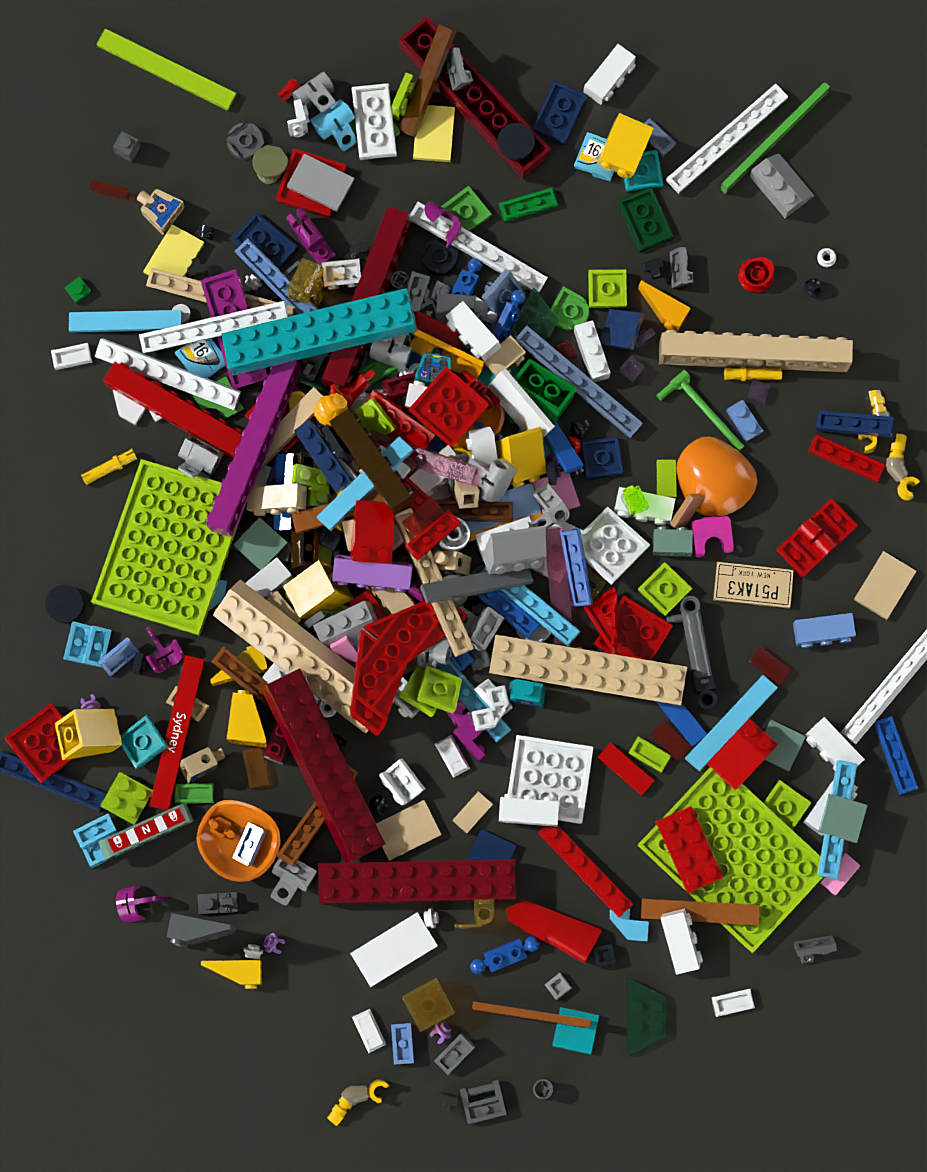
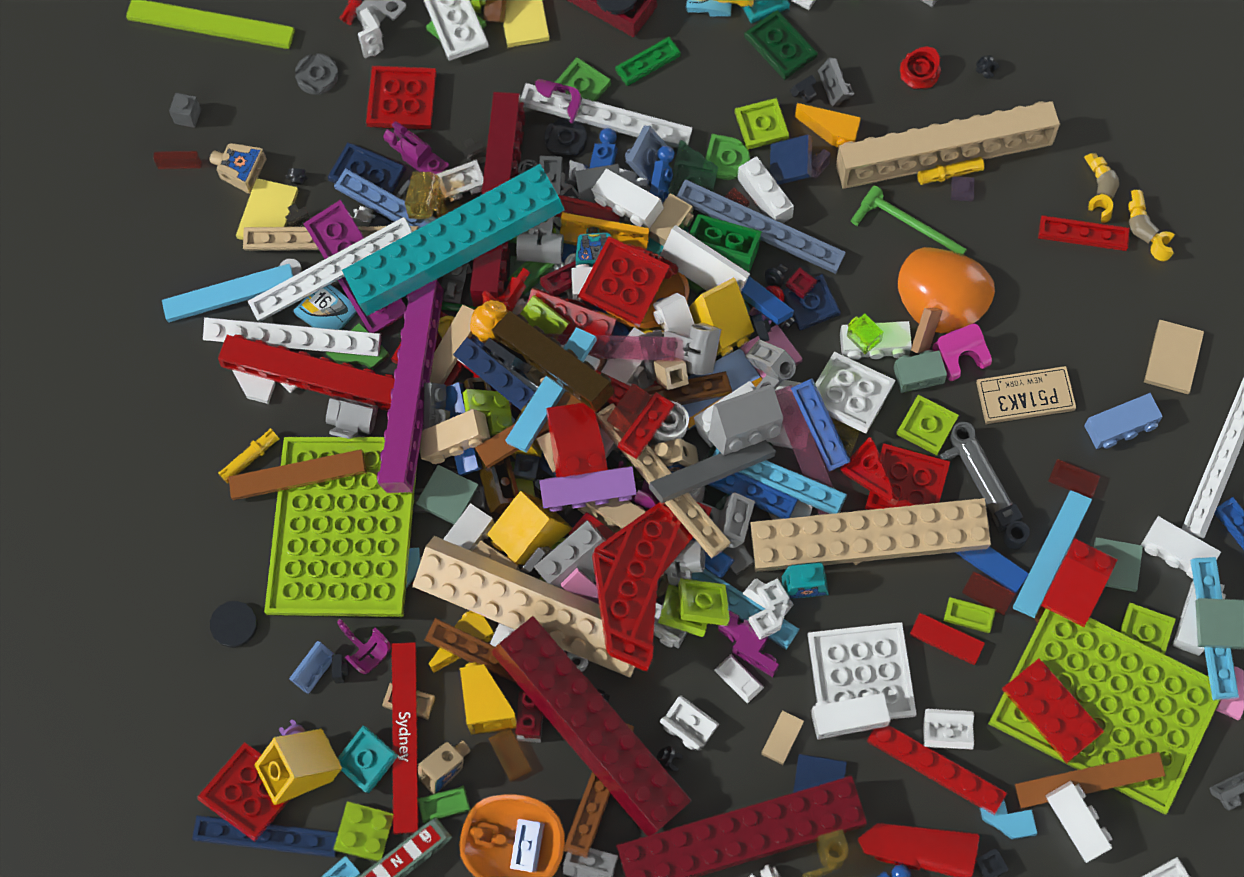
camera: 10 degrees left, 10 degrees down
(71, 356) = (176, 347): white tile -> none
(78, 290) = (166, 274): green plate -> none
(86, 644) = (271, 663): medium azure slope -> none
(144, 495) = (297, 474): none -> dark orange tile
(268, 468) = (434, 404): none -> dark grey hinge
(269, 163) = (350, 89): olive hat -> none
(320, 182) = (412, 92): light grey tile -> none
(335, 122) = (412, 27): medium azure piece -> none
(407, 830) = (712, 779): tan tile -> none
(598, 440) = (801, 283): none -> dark red tile
(603, 841) = (948, 729): none -> white bracket
(631, 369) = (815, 199): clear purple plate -> none
(666, 478) = (889, 303): lime tile -> none
(744, 420) = (957, 222): medium blue plate -> none
(816, 537) = (1080, 325): red plate -> none
(826, 252) = (991, 28): white plate -> none
(855, 423) = (1082, 191): dark blue plate -> none

